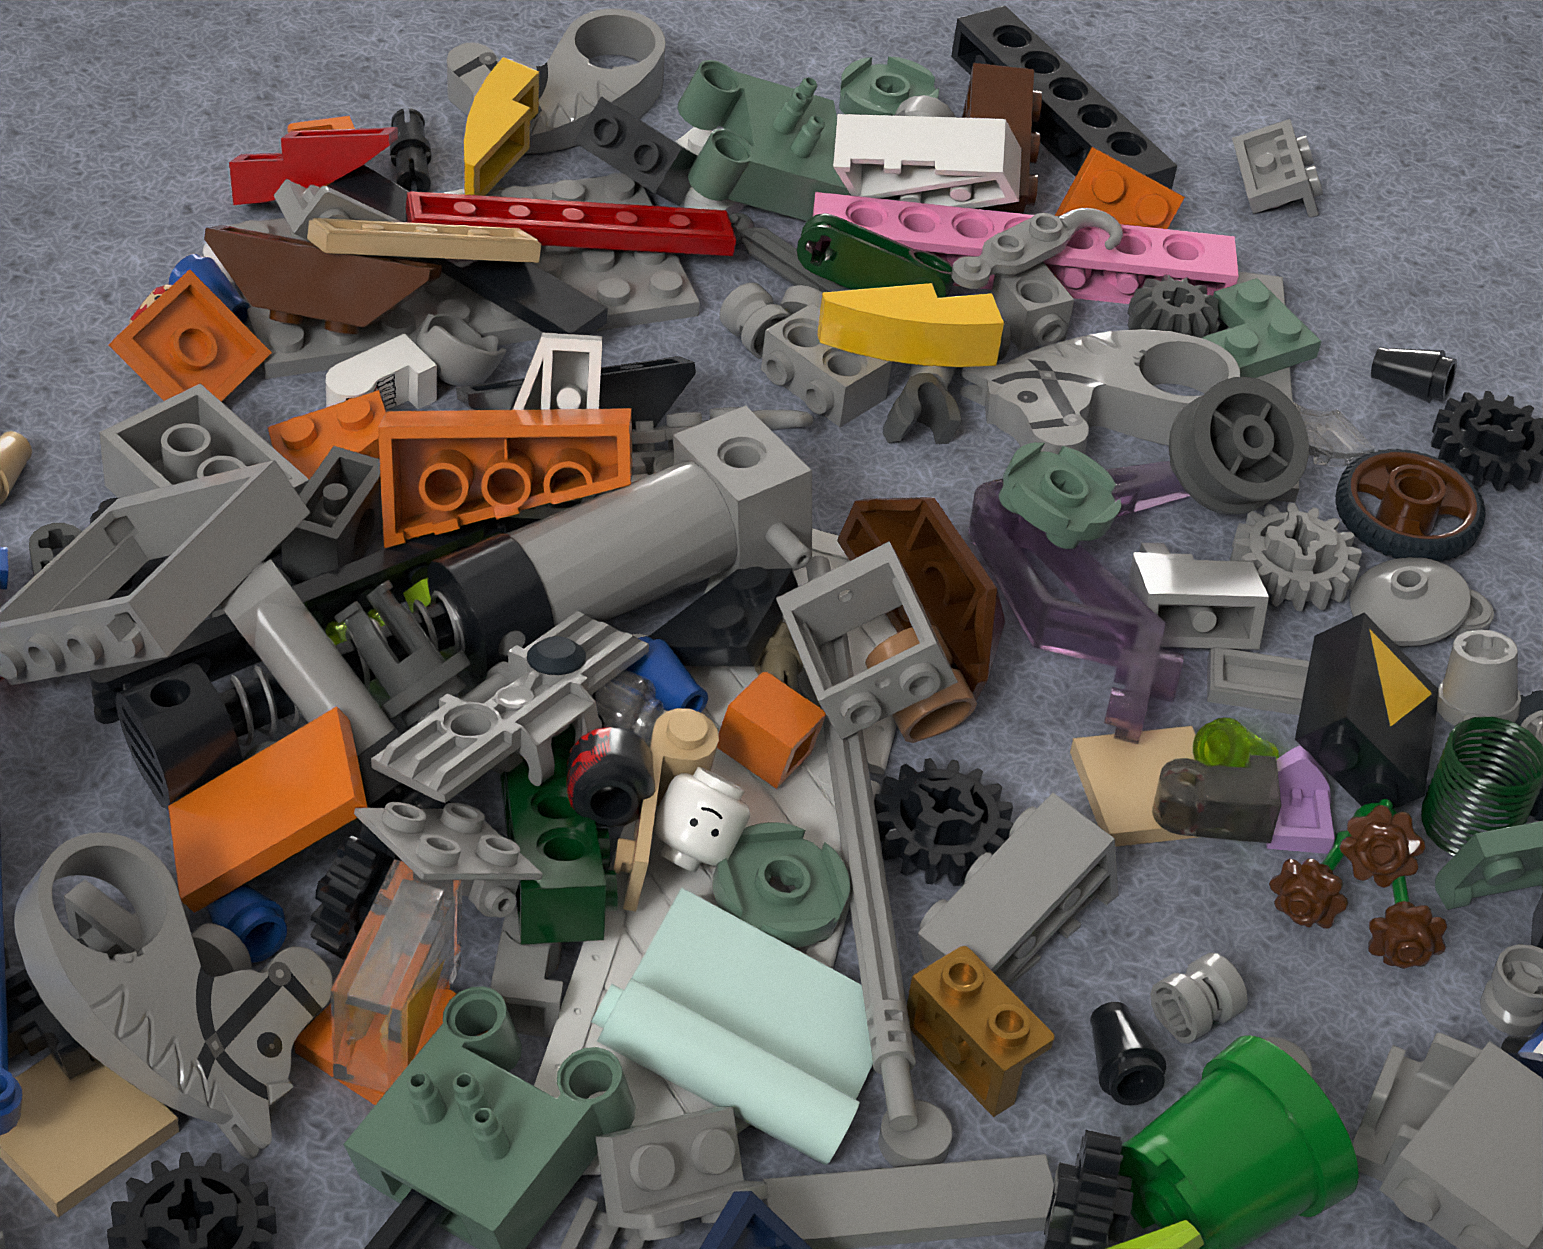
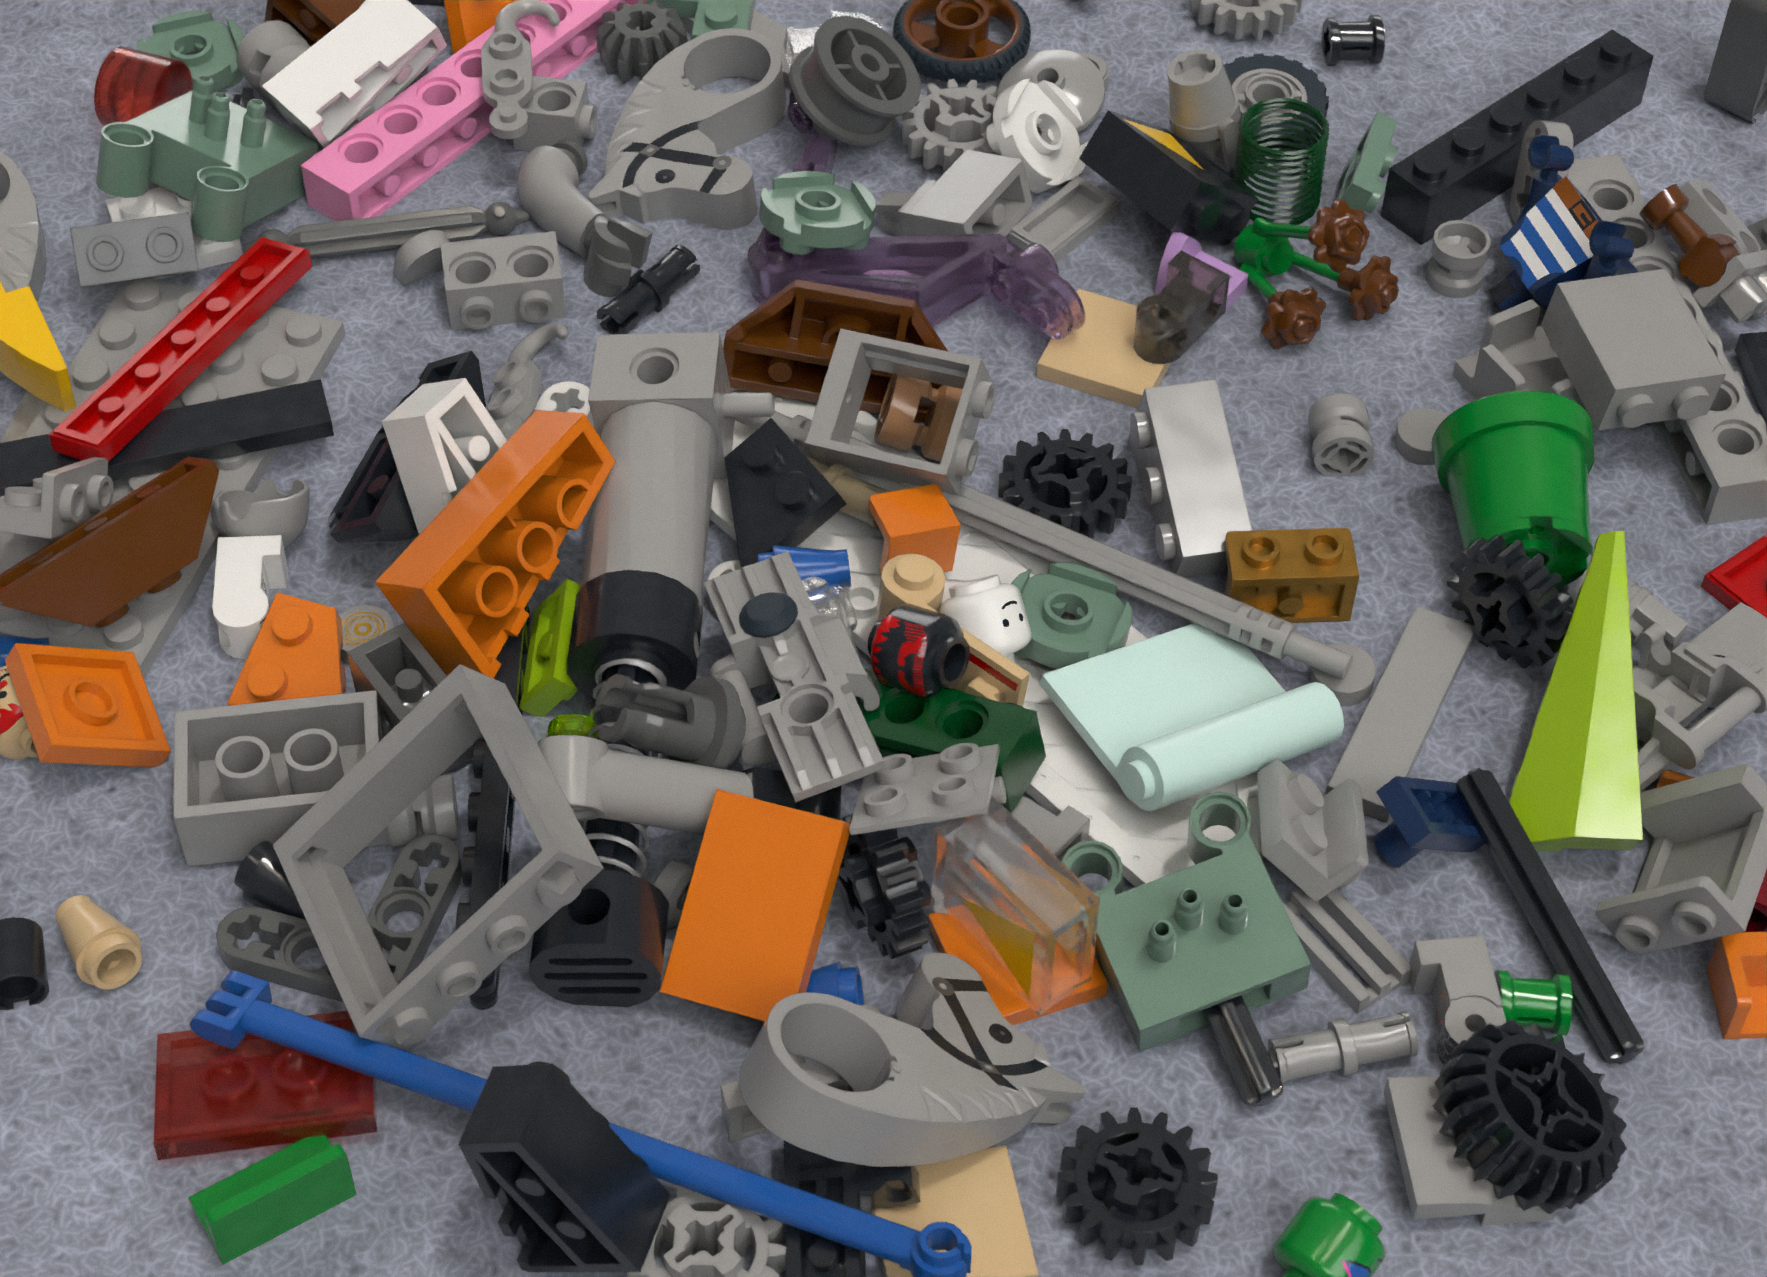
camera: 50 degrees left, 5 degrees up
(423, 240) = (147, 452): tan tile -> none
(749, 313) = (403, 295): light grey wheel -> none
(814, 59) = (136, 83): none -> clear red piece
(867, 259) = (426, 179): dark green piece -> none
(907, 456) = (648, 291): none -> black pin
(913, 325) = (551, 190): yellow slope -> none
(1125, 1056) = (1363, 508): black cone -> none
(1229, 744) = (1130, 292): clear neon green cone -> none
(1306, 585) = (1014, 133): none -> white plate

